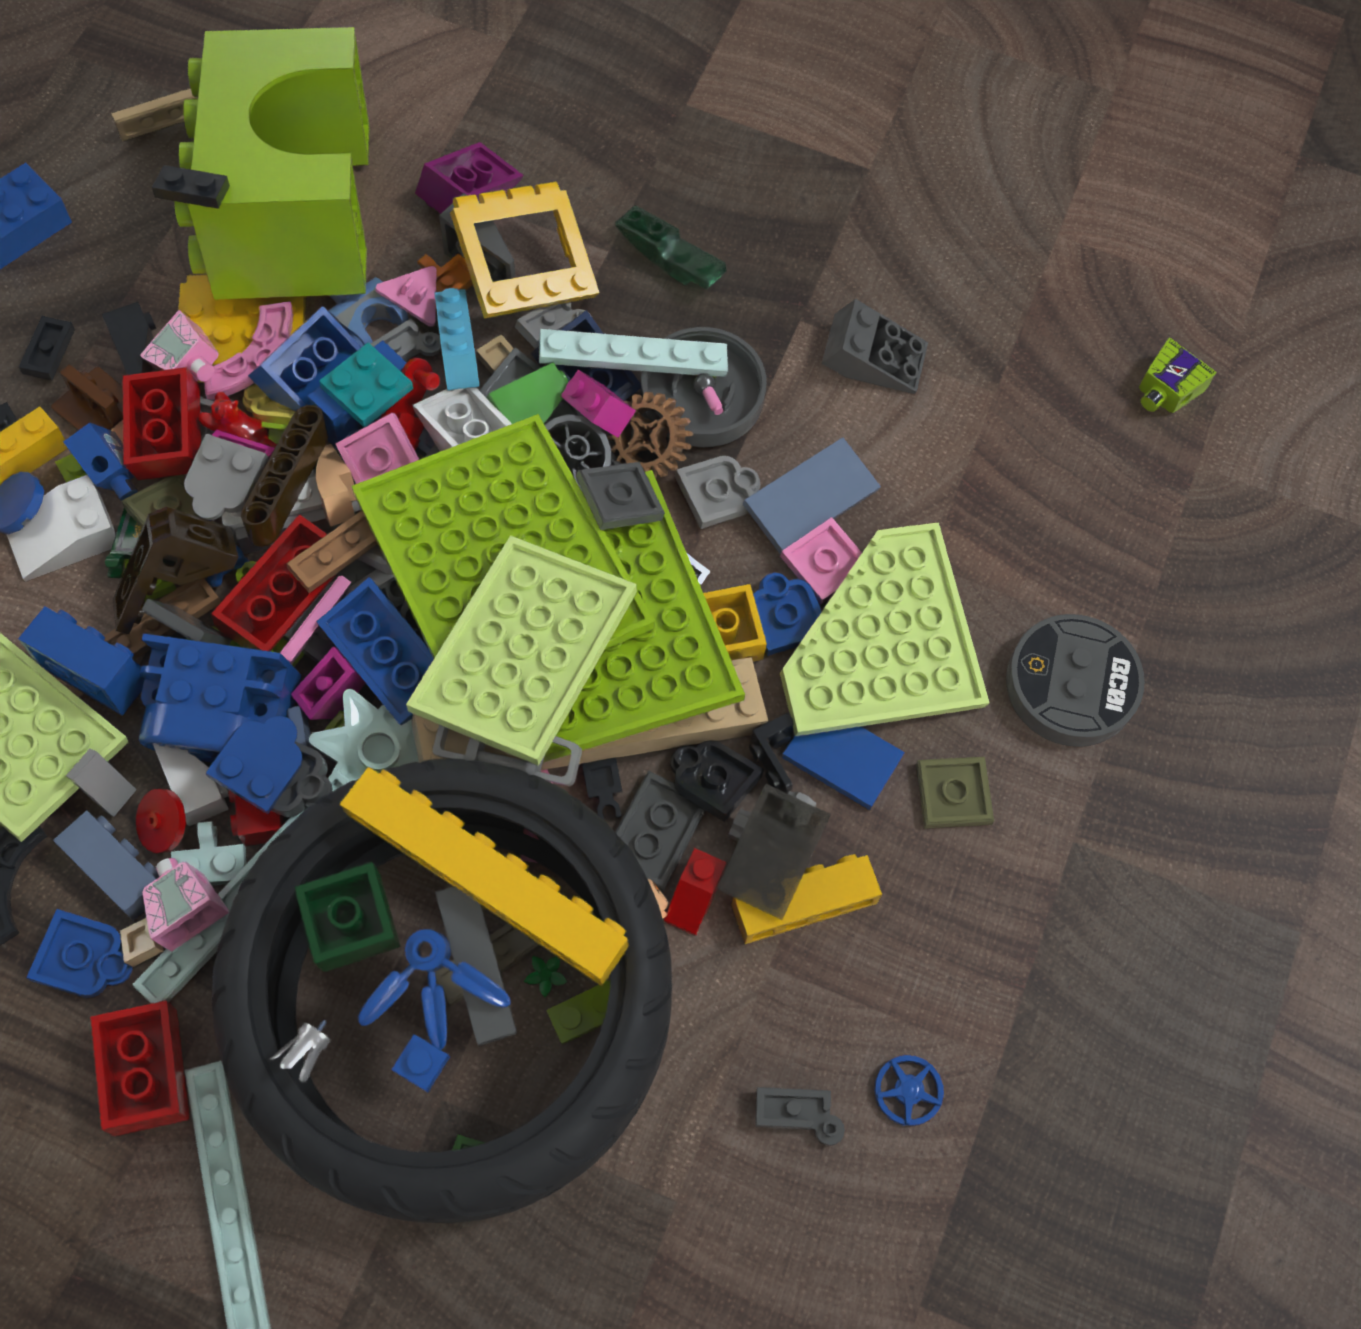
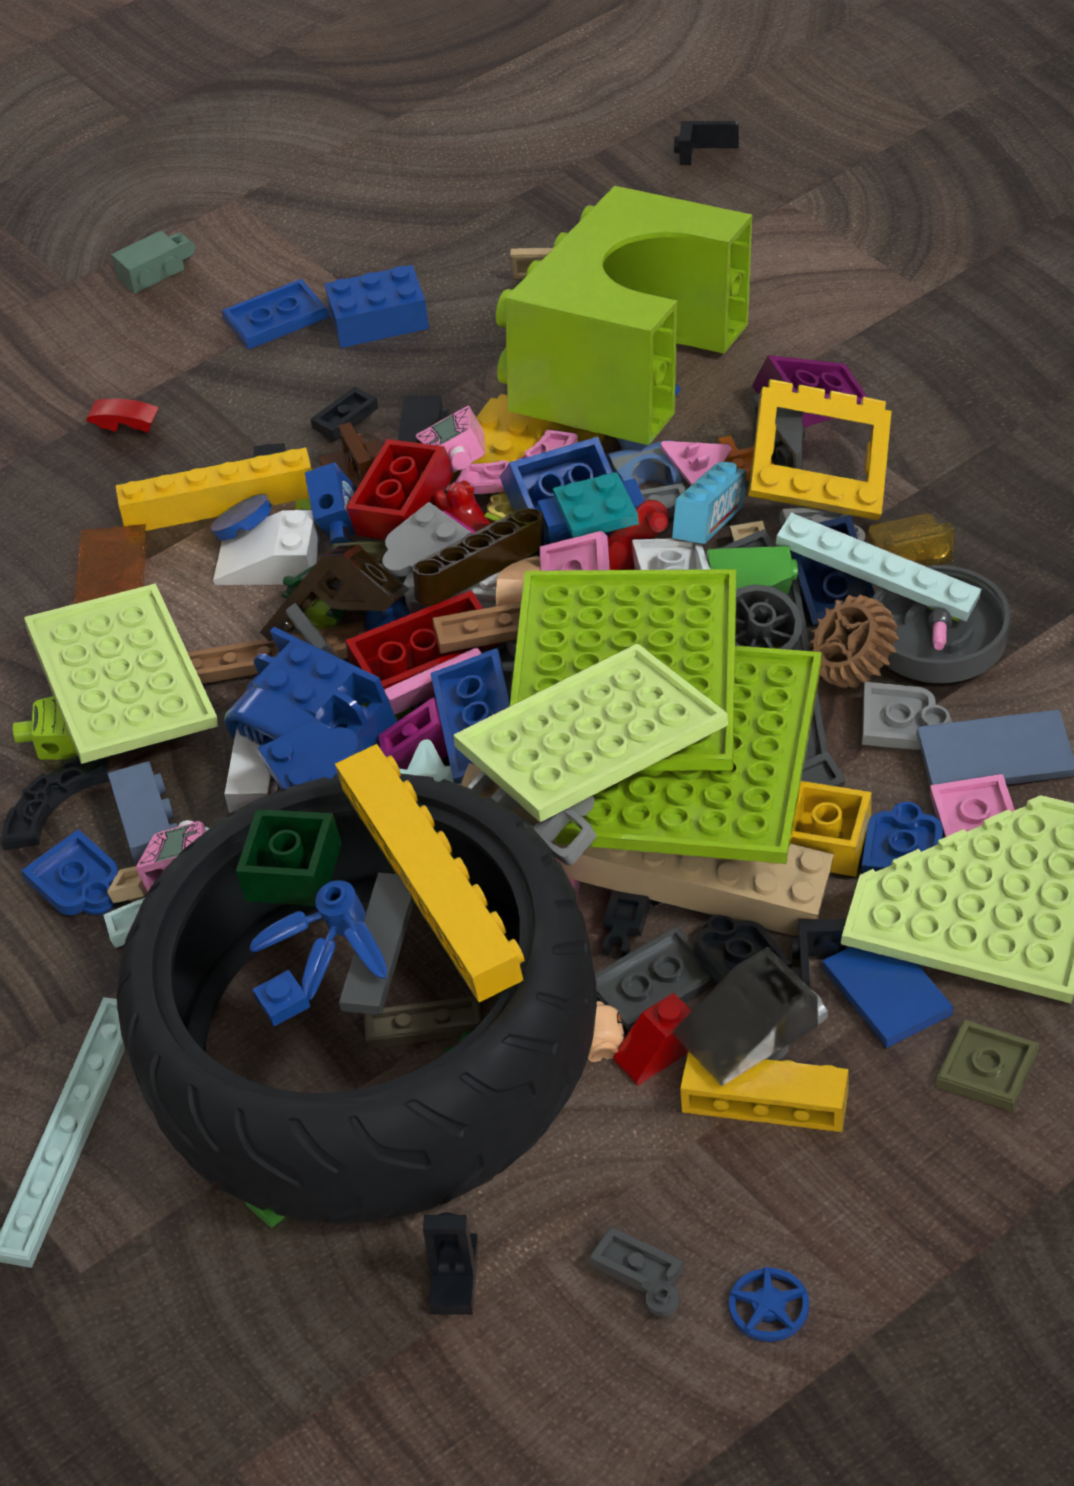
camera: 40 degrees right, 20 degrees down
(83, 659) = (216, 640): blue brick -> none
(101, 782) = (175, 745): light grey tile -> none
(139, 1068) = (66, 974): red brick -> none
(160, 820) = (206, 795): red piece -> none
(190, 186) = (516, 284): black plate -> none
(307, 1038) = (196, 944): flat silver piece -> none
(598, 403) = (810, 591): dark pink brick -> none
(620, 495) = (771, 655): dark grey tile -> none
(636, 309) = (916, 539): none -> clear yellow bracket
(651, 1189) = (452, 1263): none -> black bracket
(668, 251) = (976, 499): clear green slope -> none

